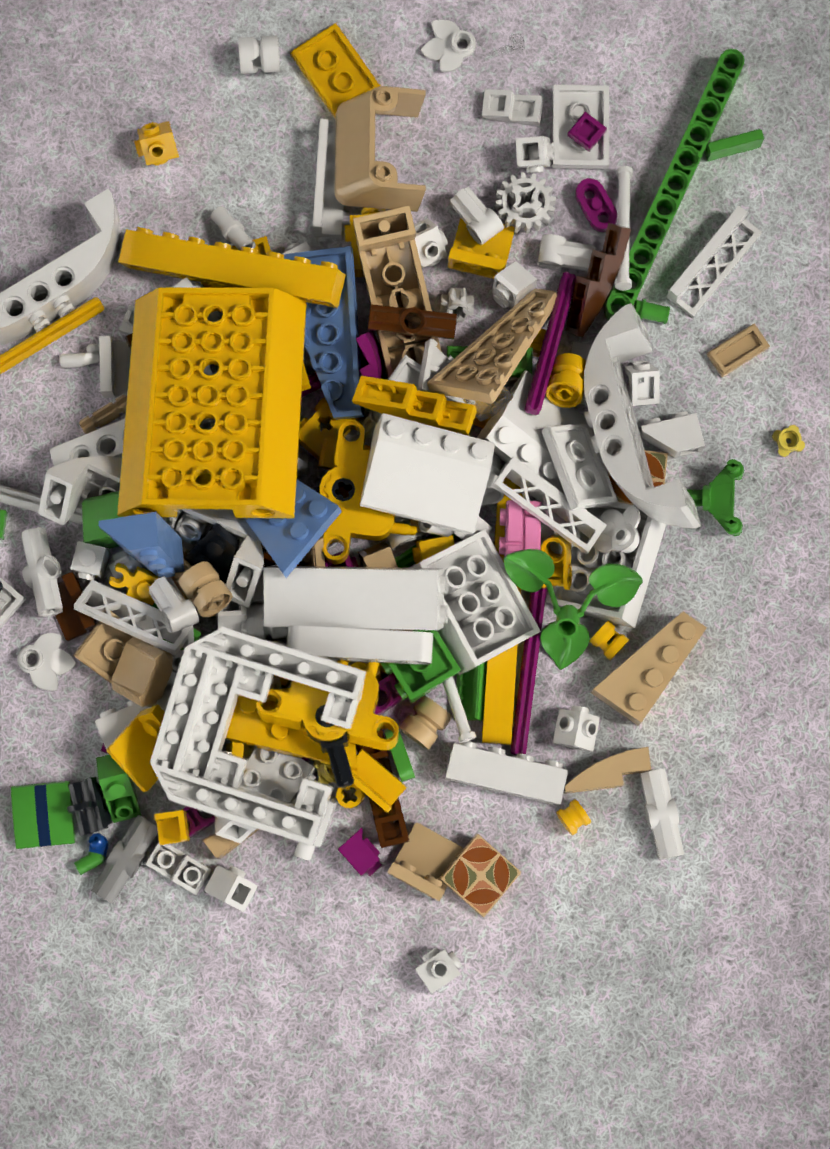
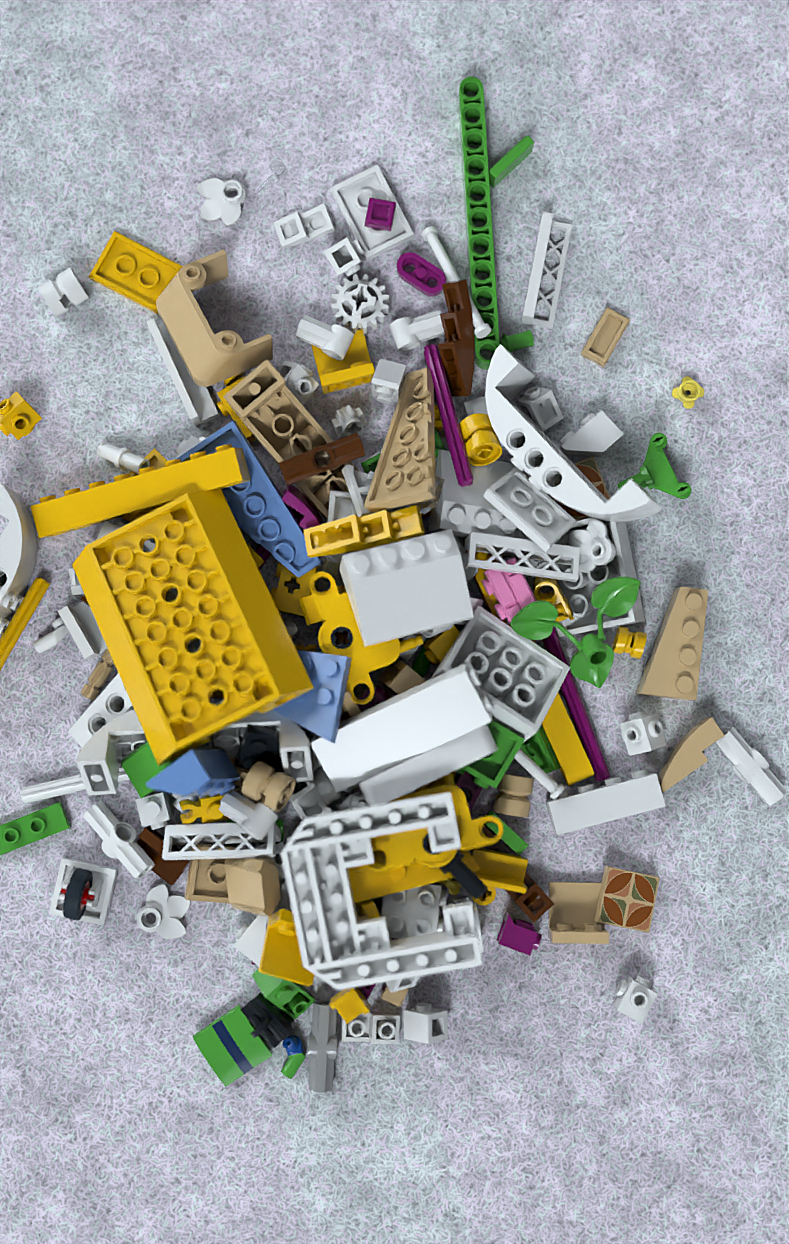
camera: 25 degrees left, 5 degrees up
(573, 817) = (678, 808): yellow wheel -> none

